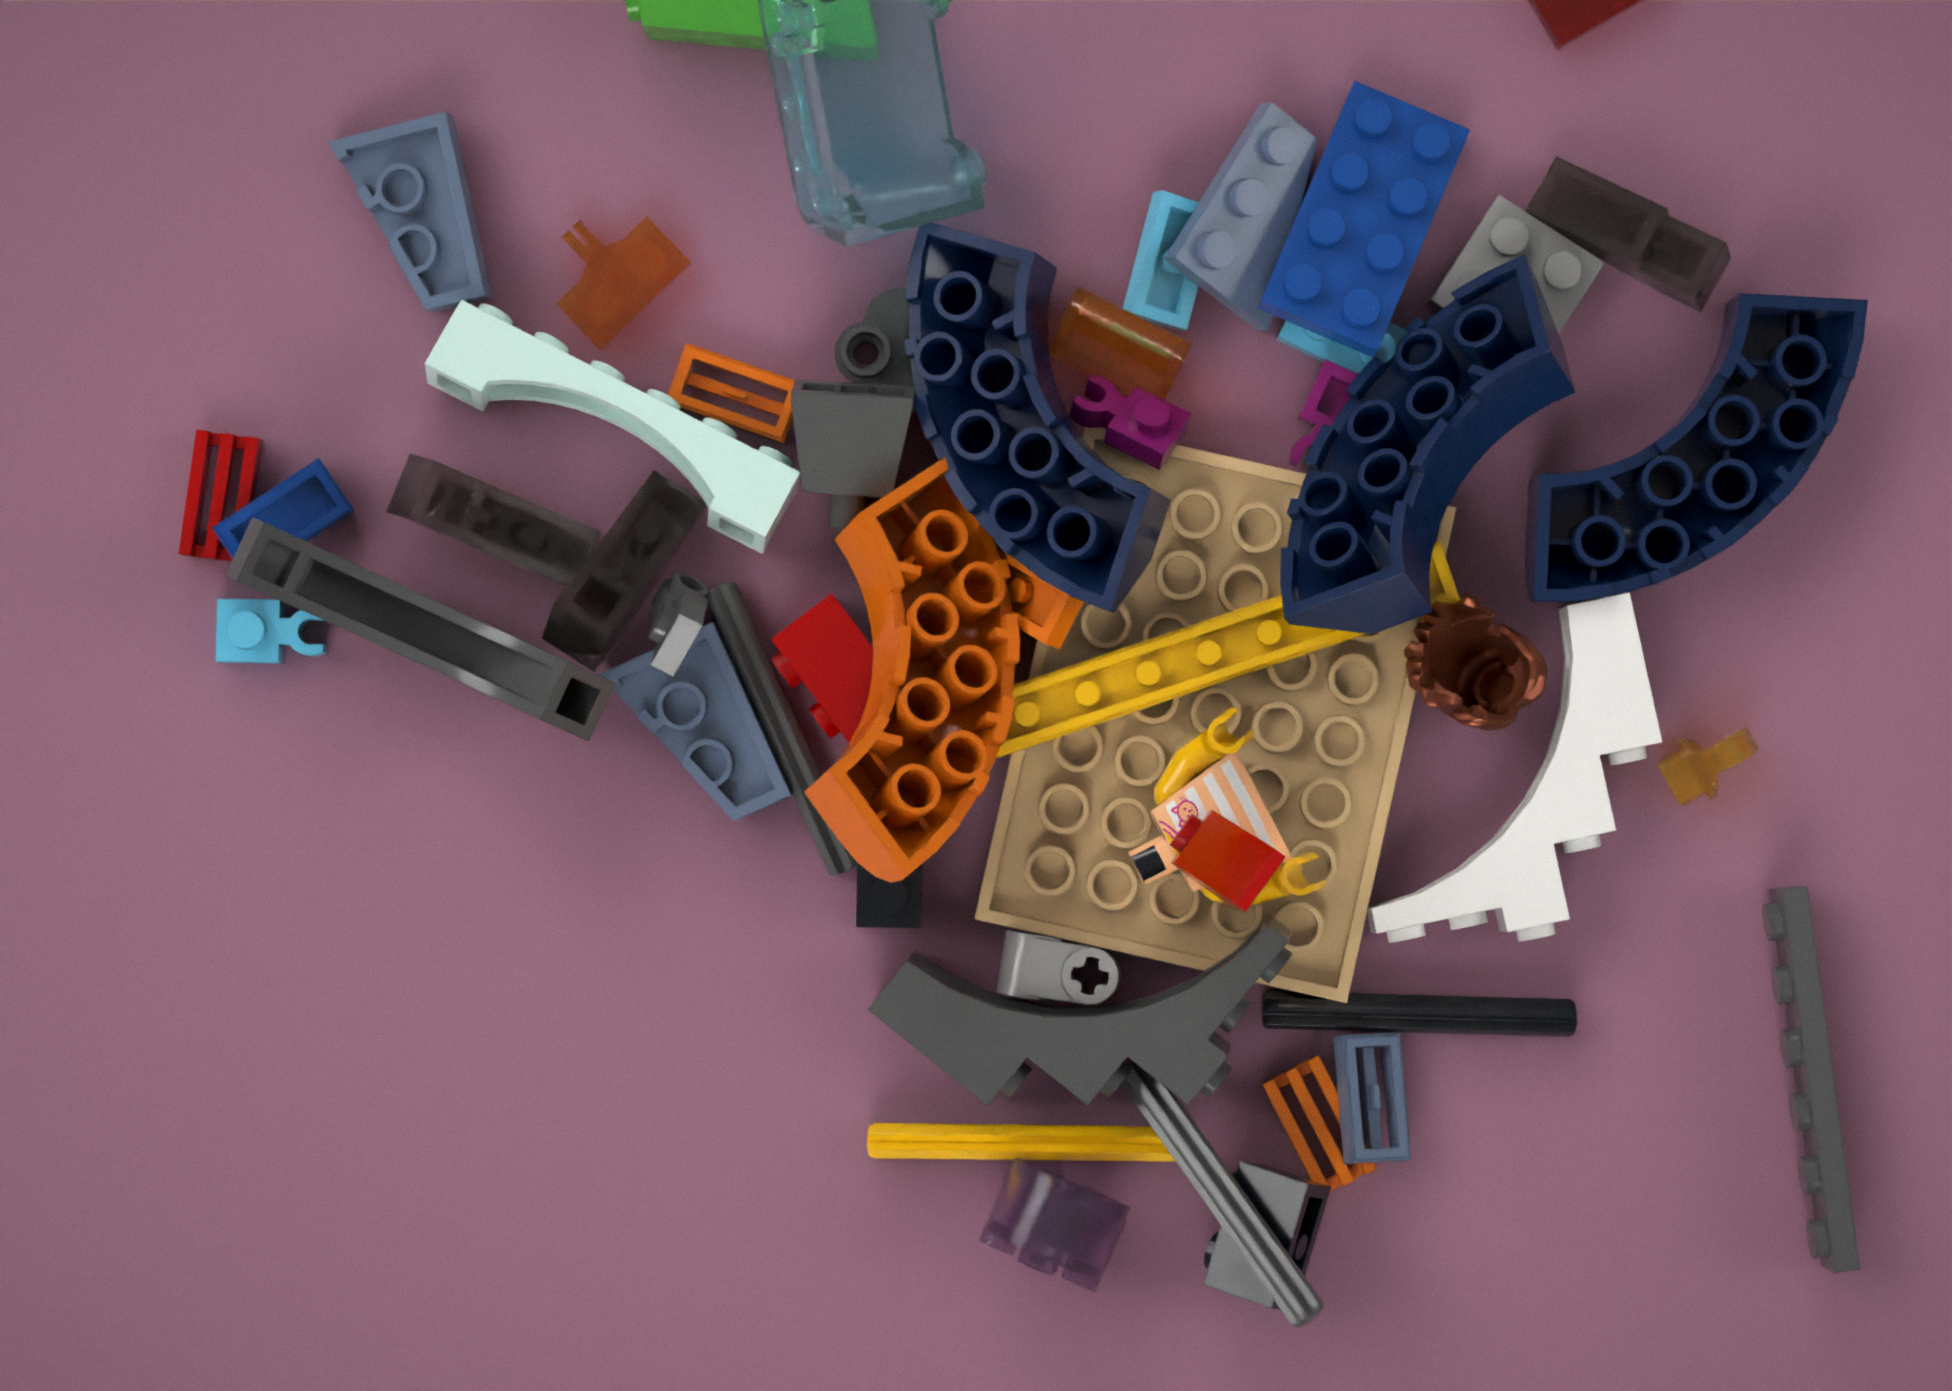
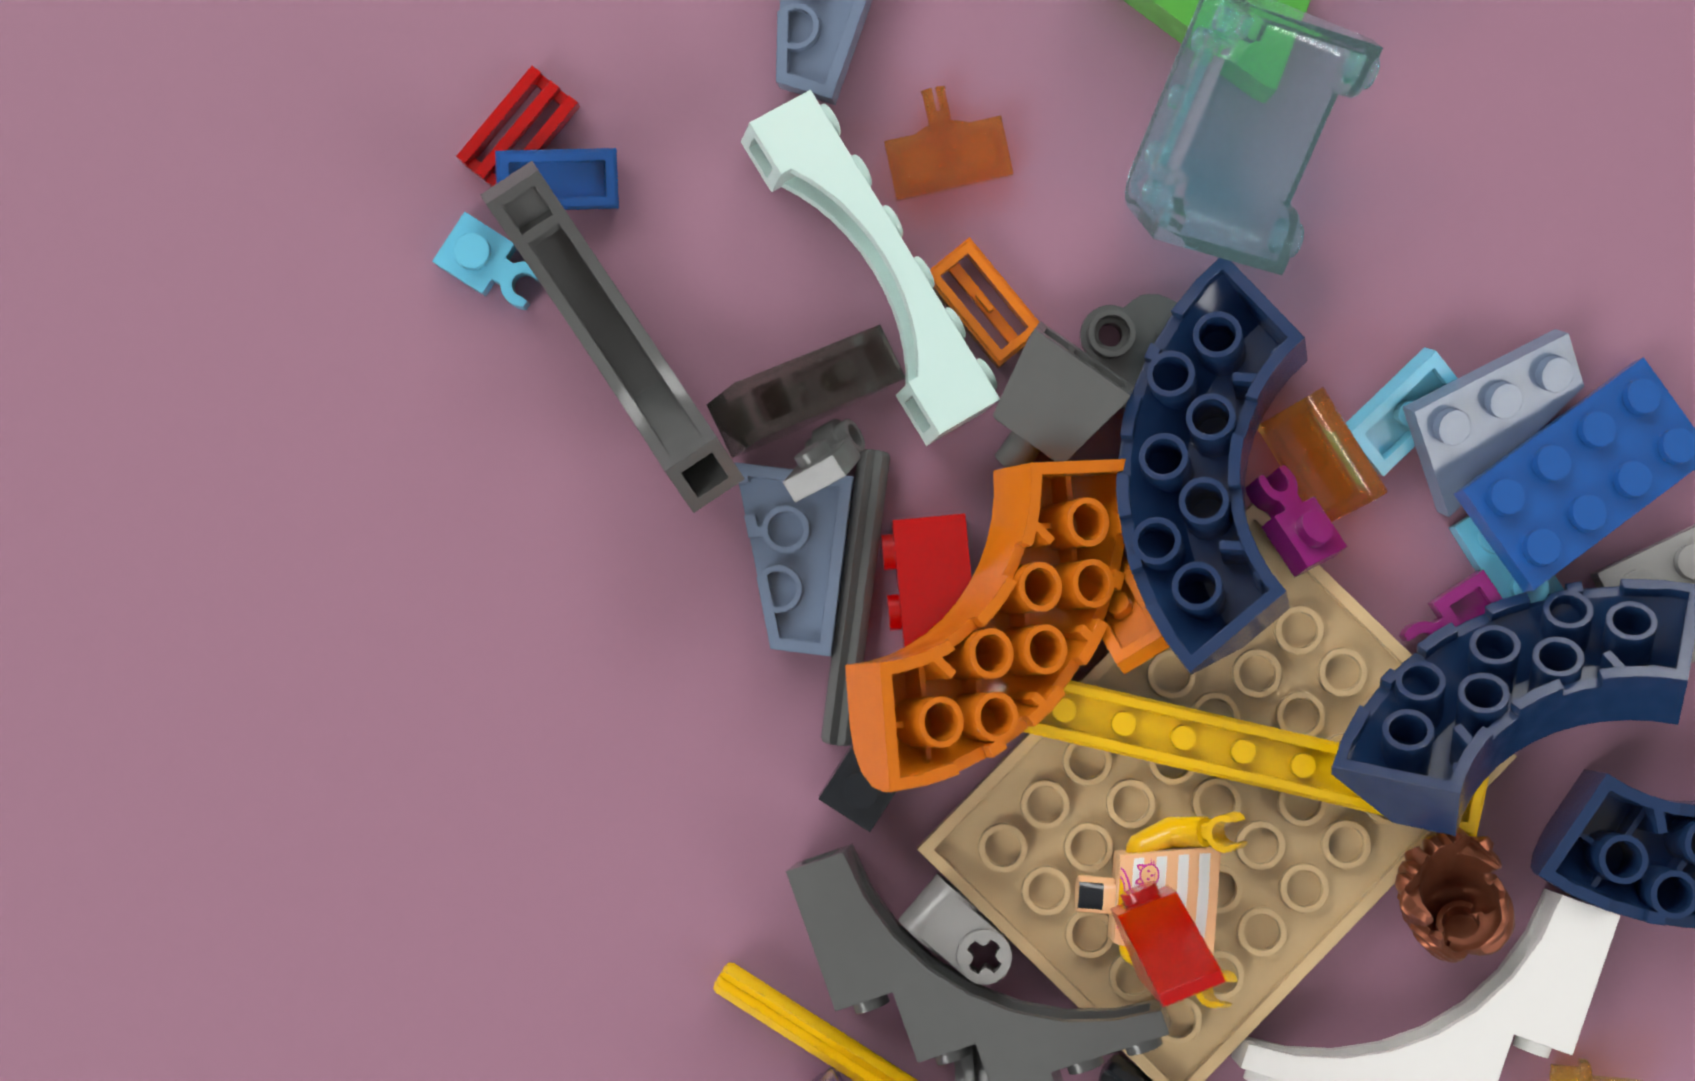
camera: 25 degrees right, 0 degrees up
(491, 520) = (724, 283): clear smoke slope -> none

